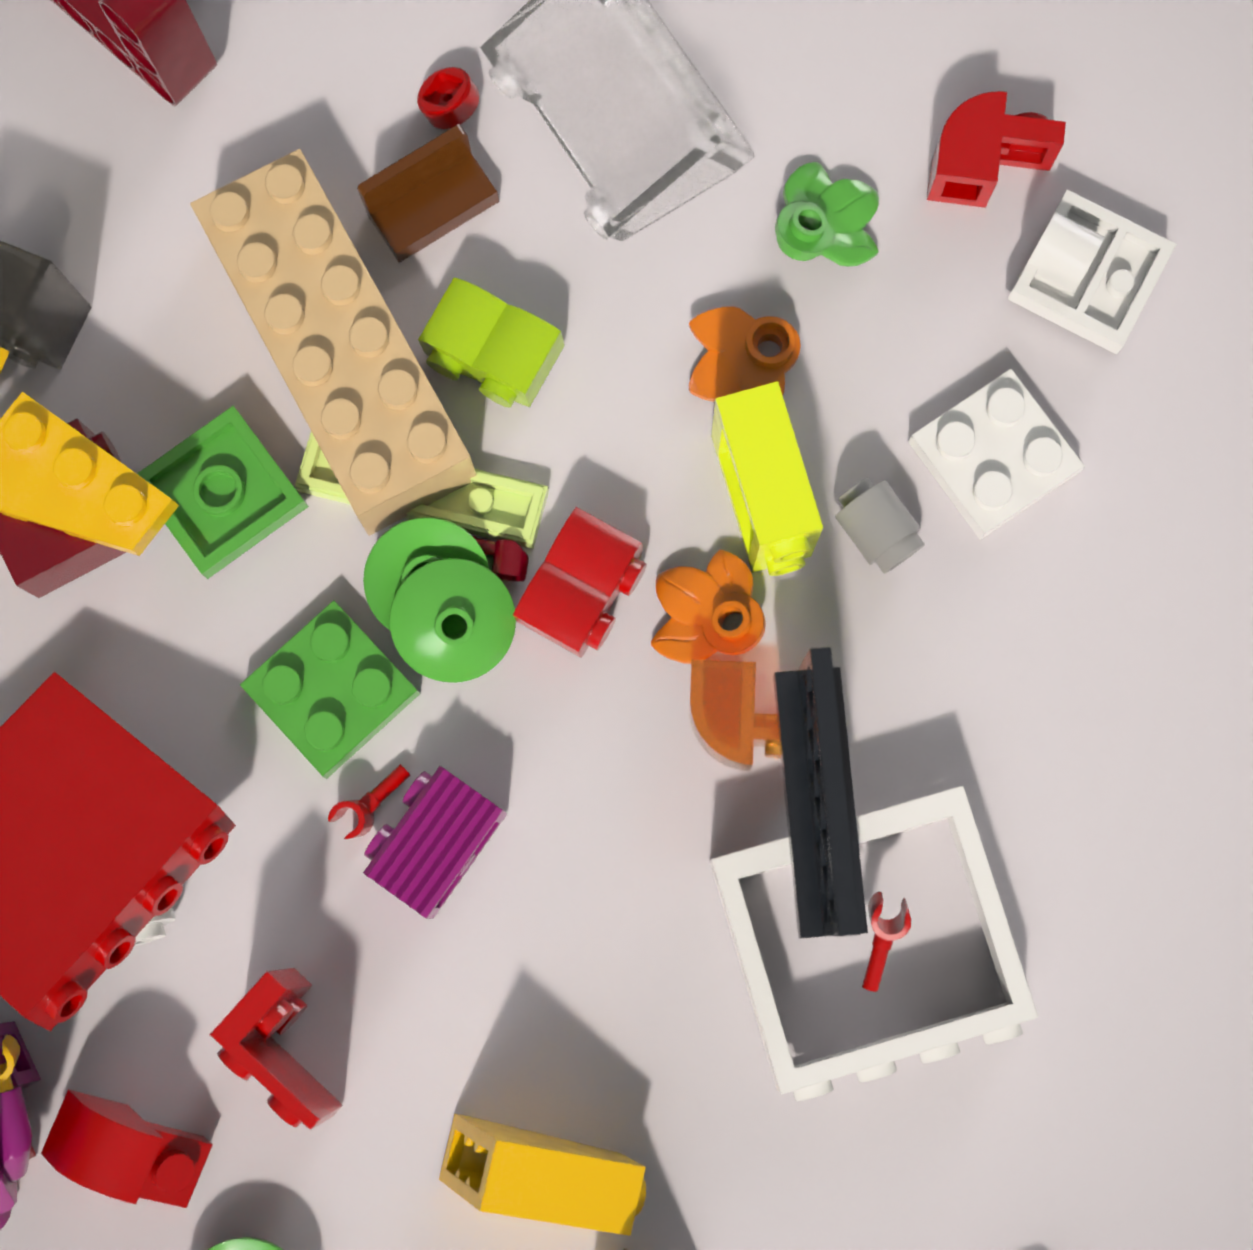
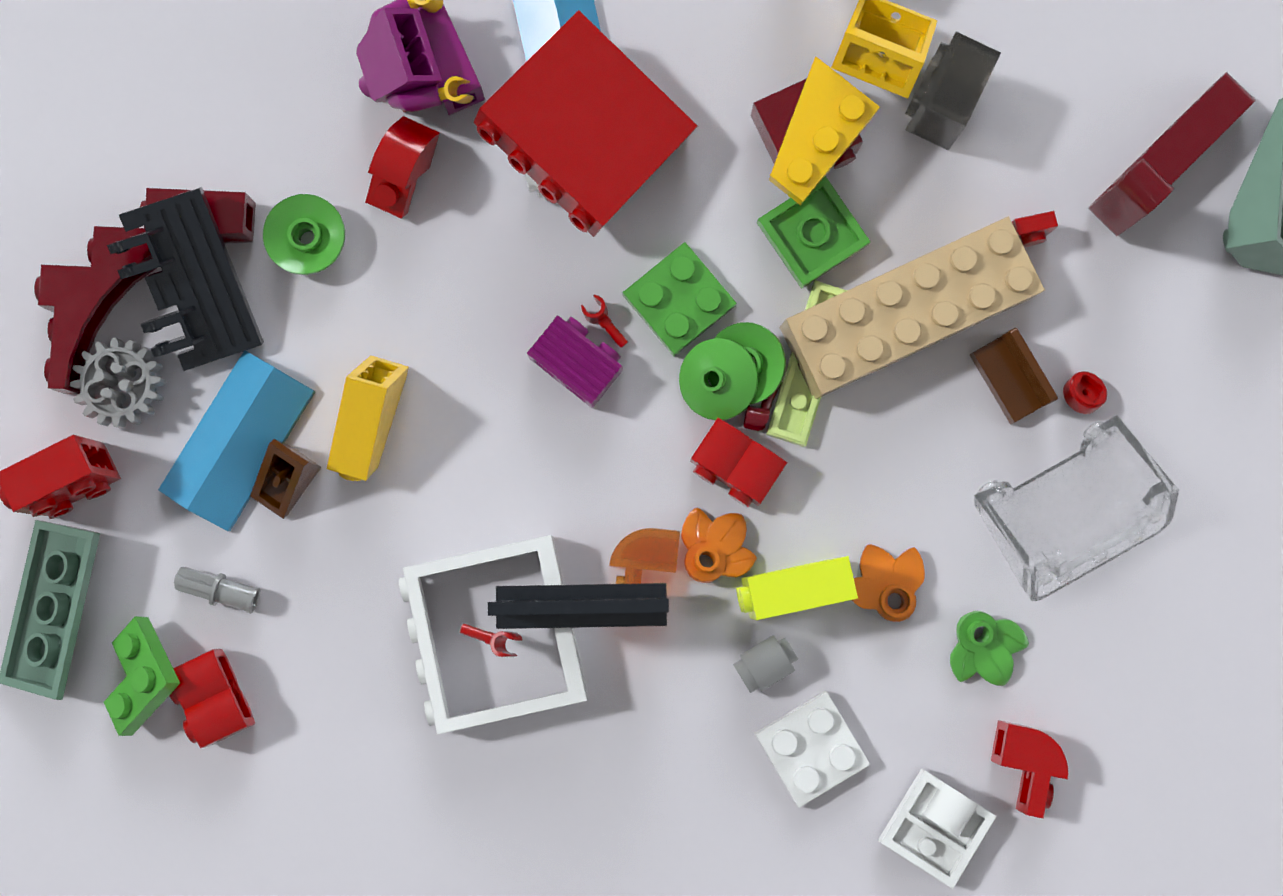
camera: 85 degrees right, 5 degrees up
(203, 169) = (1035, 228): none -> red plate
(251, 1051) = (452, 244): red bracket -> none
(490, 343) = (905, 413): lime brick -> none

